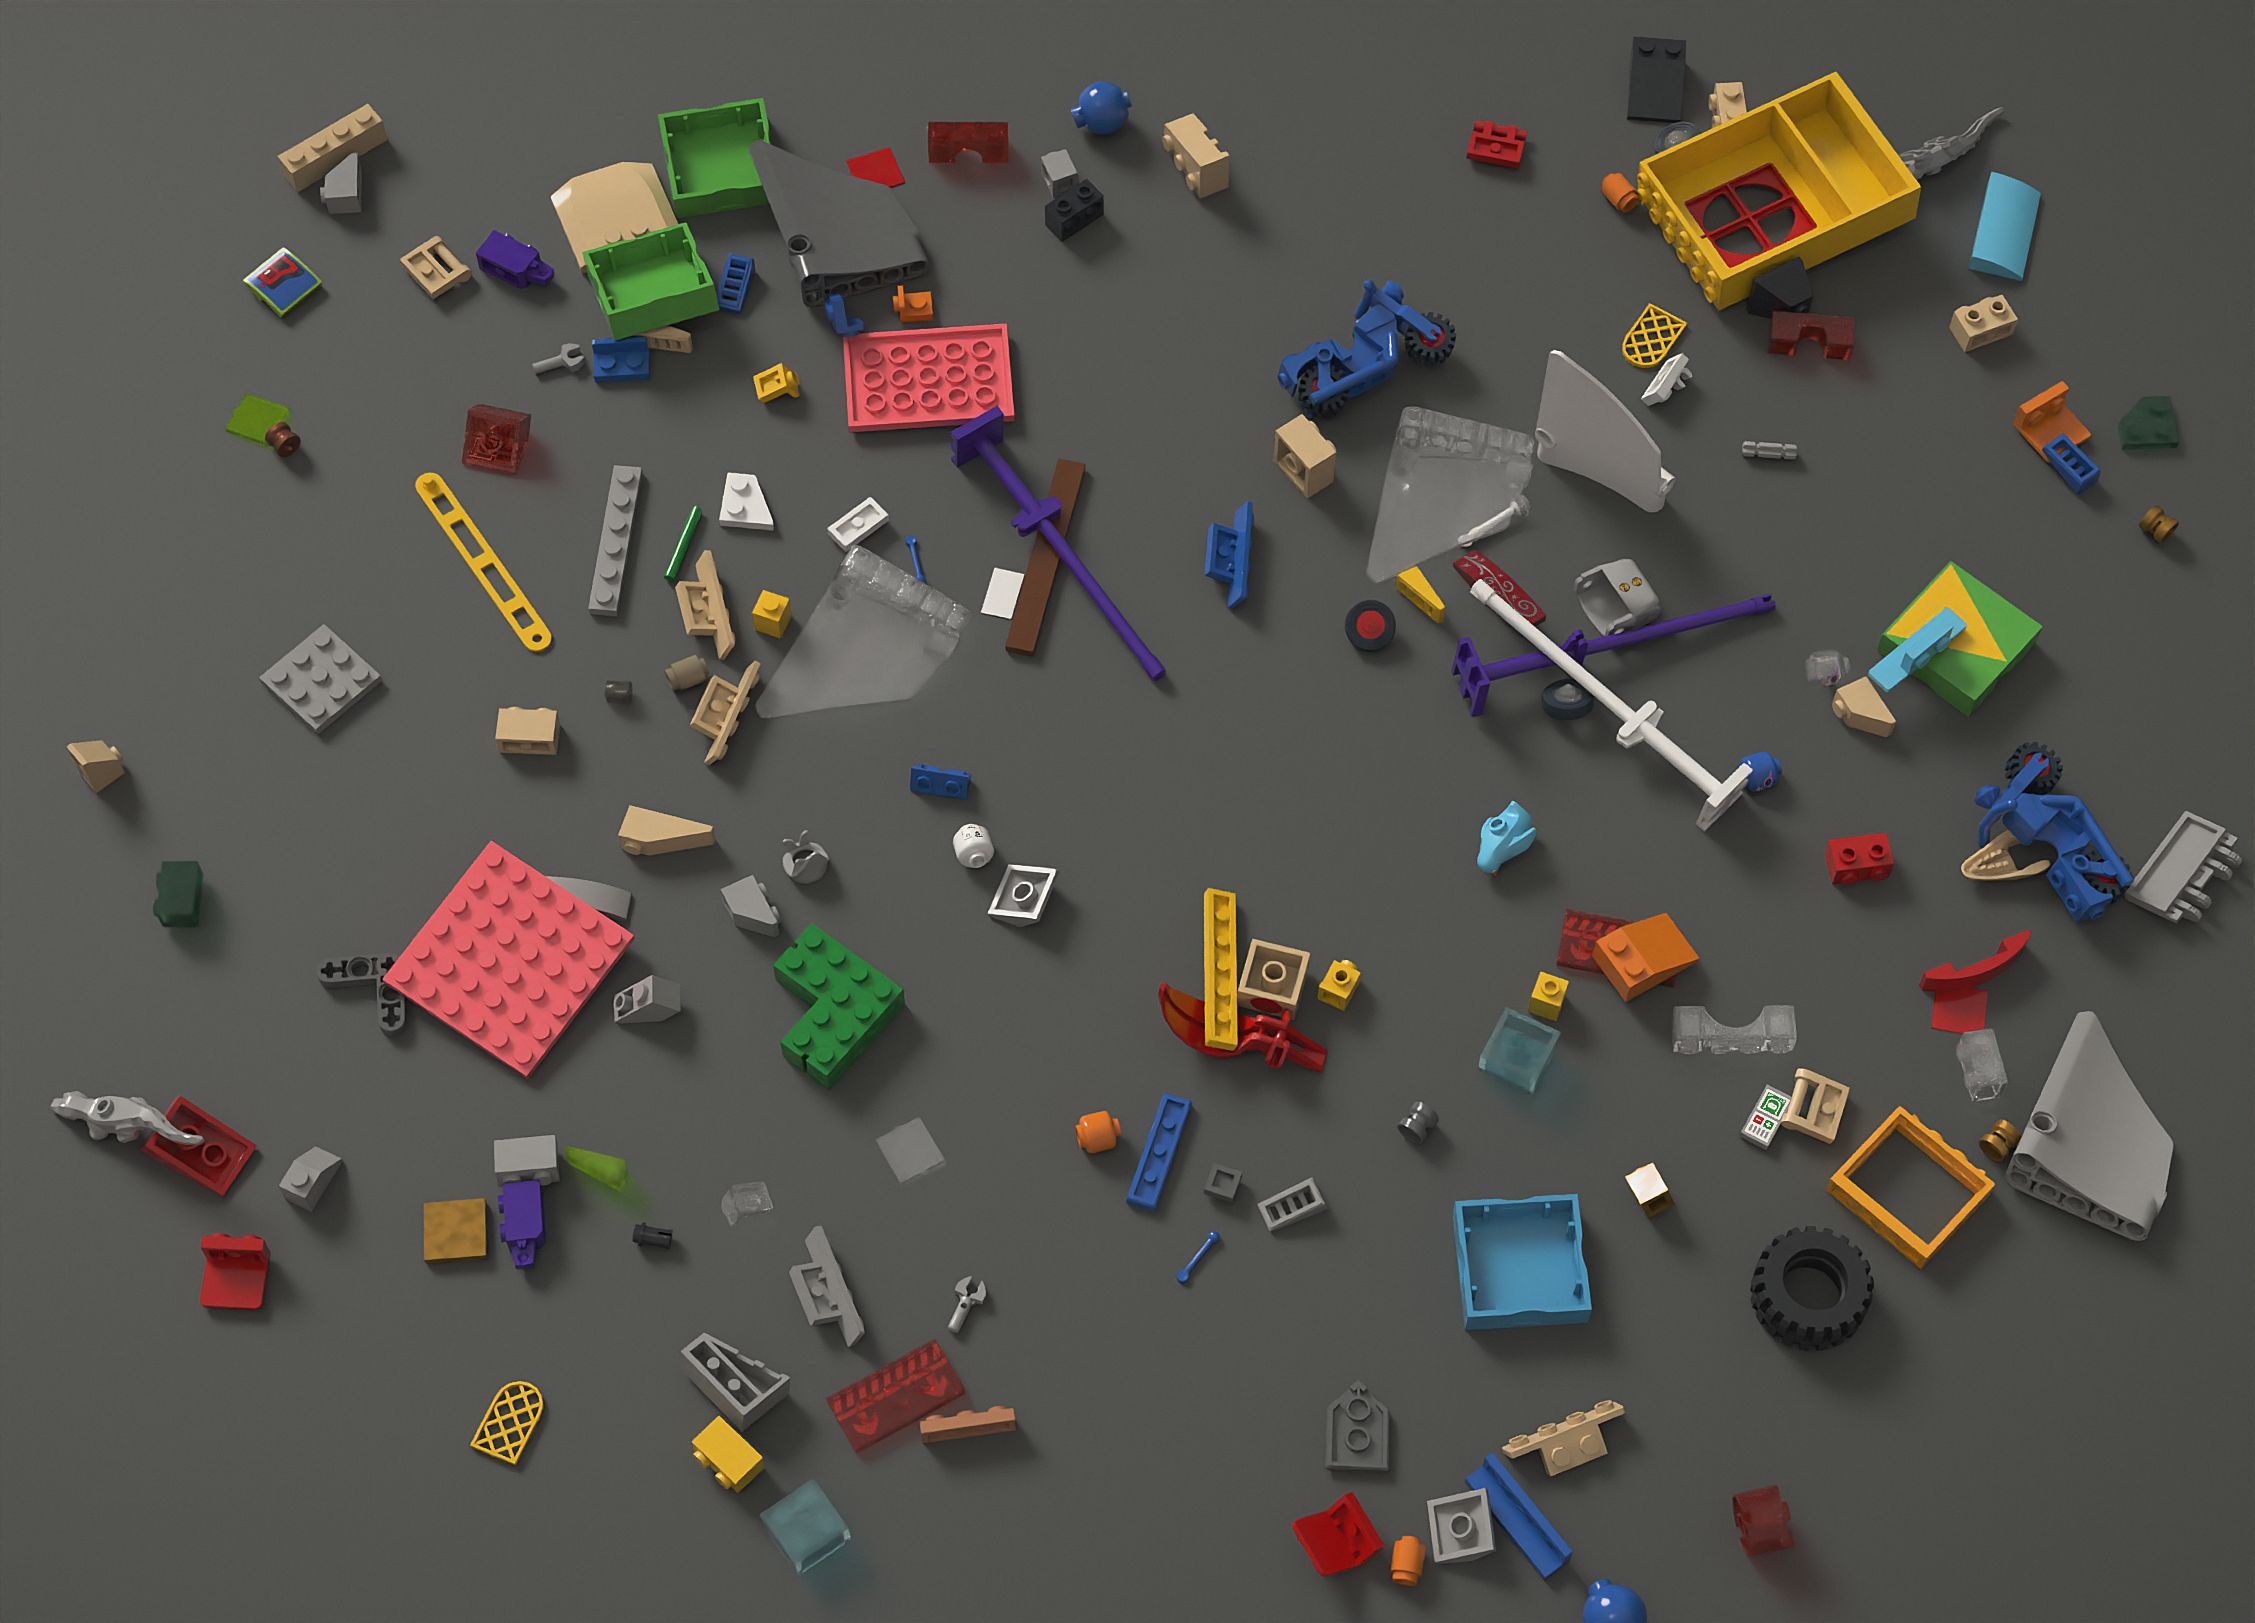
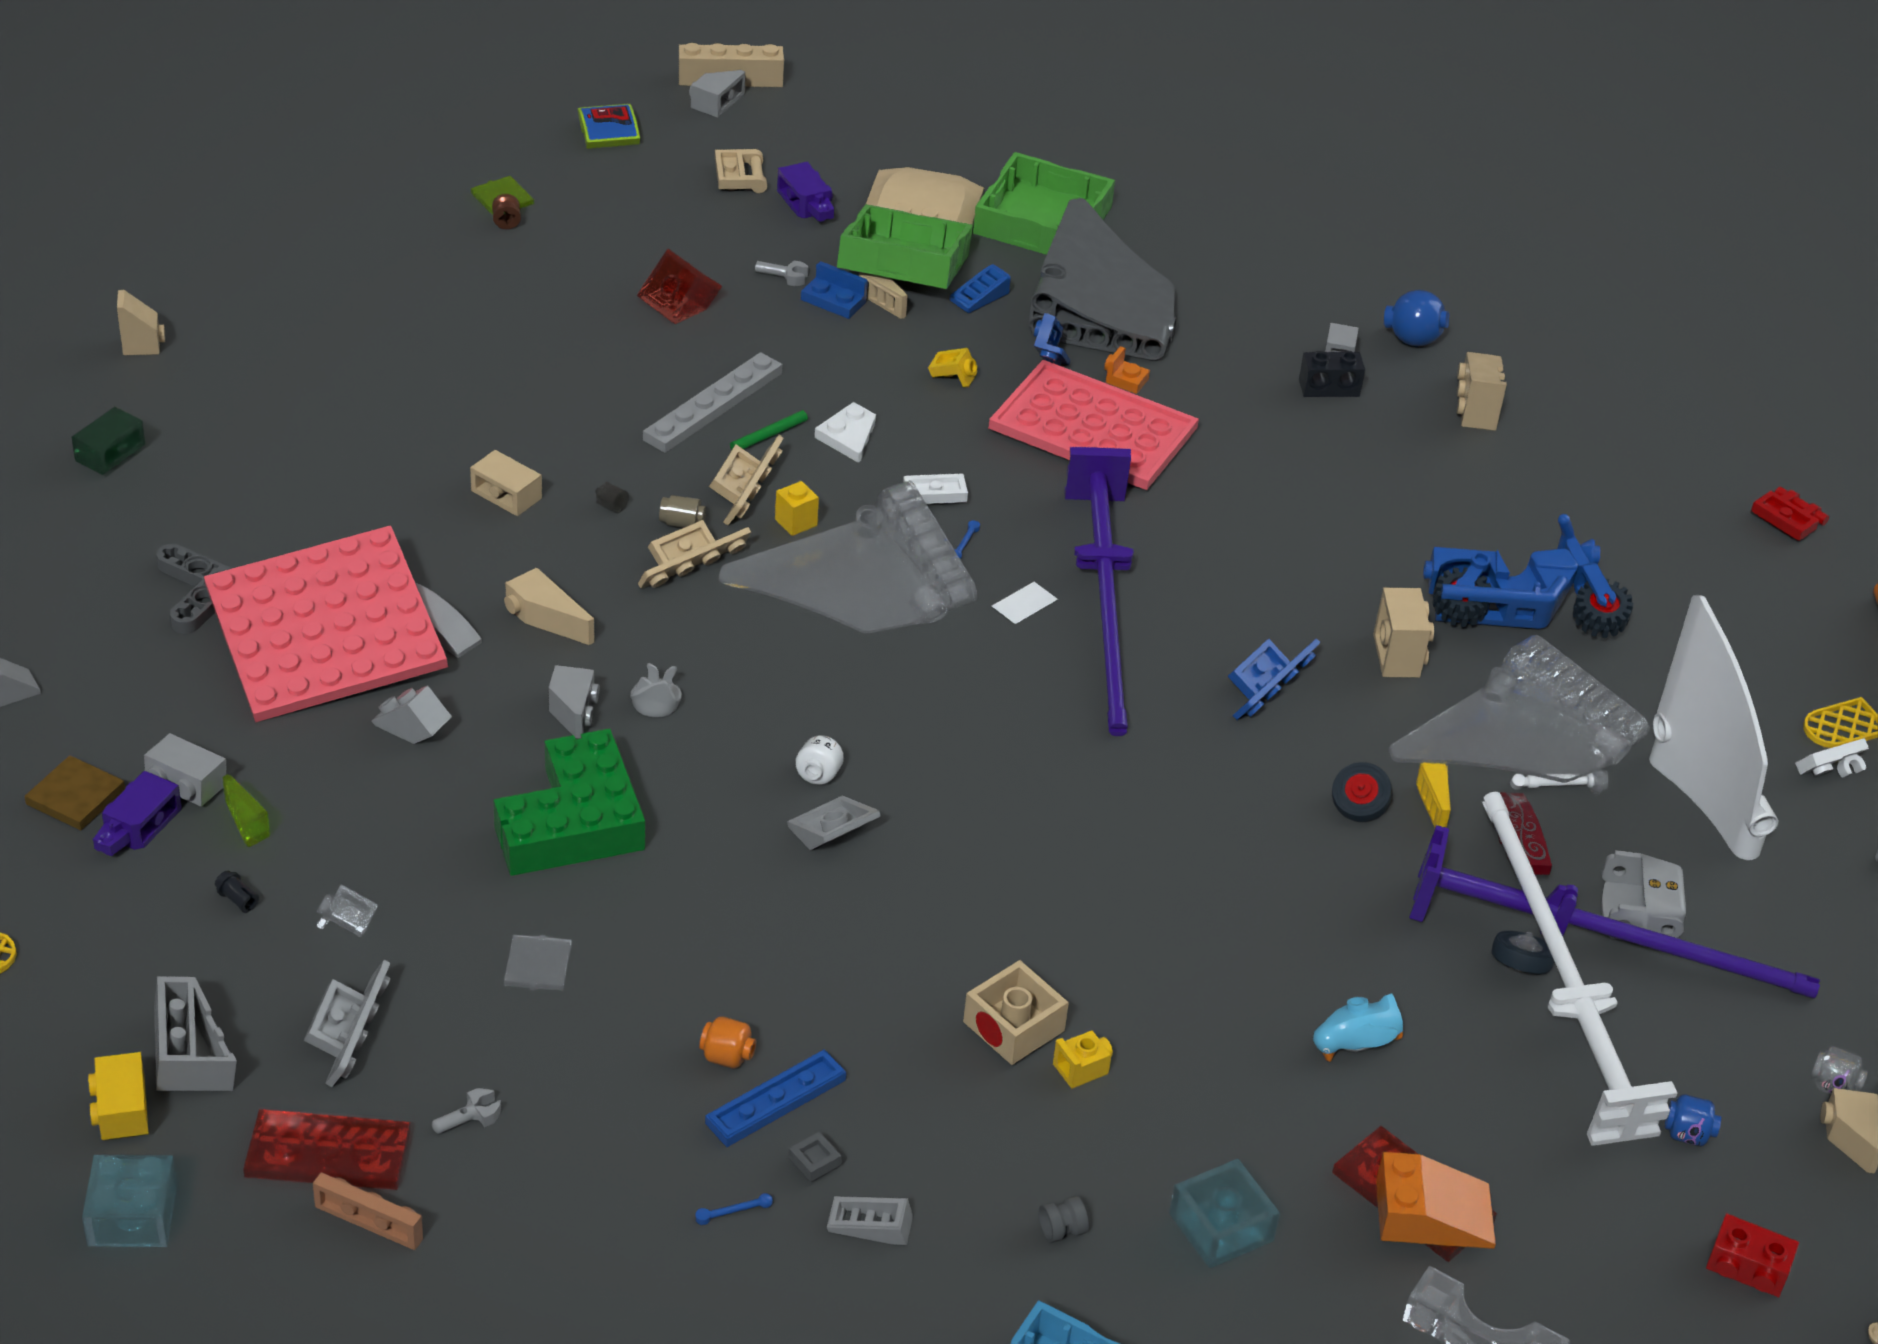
camera: 30 degrees right, 20 degrees down
(320, 679) = (376, 370): light grey plate -> none
(430, 487) = (591, 299): yellow piece -> none
(877, 167) = (1184, 278): red sticker -> none
(933, 781) = (835, 700): blue hinge -> none
(950, 138) = (1295, 295): clear red arch -> none
(1044, 563) = (1082, 598): reddish brown tile -> none
(1187, 1021) = (927, 1031): red piece -> none
(1220, 969) = (978, 965): yellow plate -> none
(1548, 996) = (1297, 1186): yellow brick -> none

